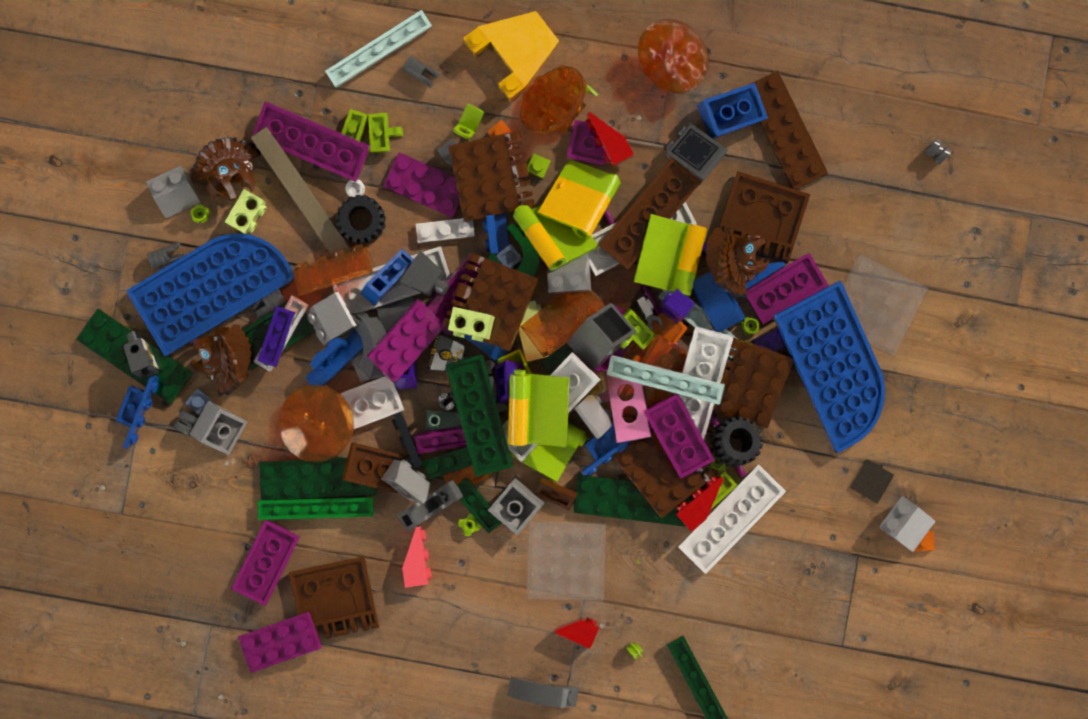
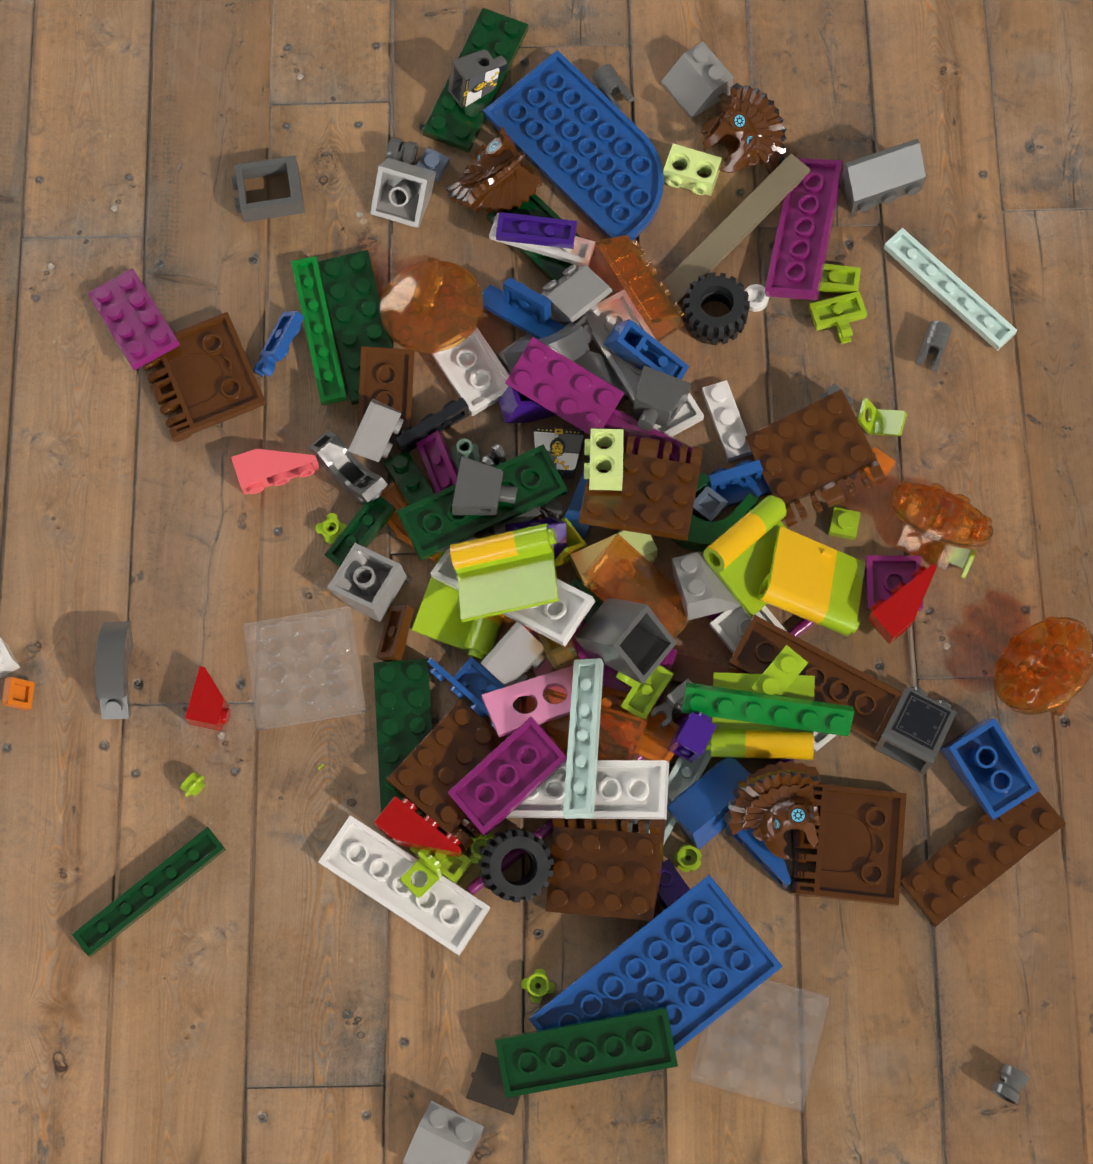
camera: 80 degrees right, 15 degrees down
(134, 408) = (407, 88): blue bracket -> none
(194, 213) = (677, 112): lime plate -> none
(211, 537) = (270, 208): none -> dark grey window
(265, 562) = (236, 283): magenta plate -> none
(268, 304) = (586, 227): dark grey hinge -> none
(284, 74) = (883, 176): none -> slope
(319, 538) = (278, 342): none -> blue plate
(423, 185) = (781, 378): magenta plate -> none
(473, 415) = (480, 489): none -> dark grey torso
(521, 43) = (1006, 465): yellow wedge -> none
(647, 238) = (780, 673): none -> lime plate
(669, 251) = (768, 709): none -> green plate
(724, 500) = (428, 865): none -> lime bracket
(785, 288) = (756, 895): magenta plate -> none
(812, 447) = (546, 986): none -> lime plate
(867, 419) = (586, 1052): none -> dark green plate

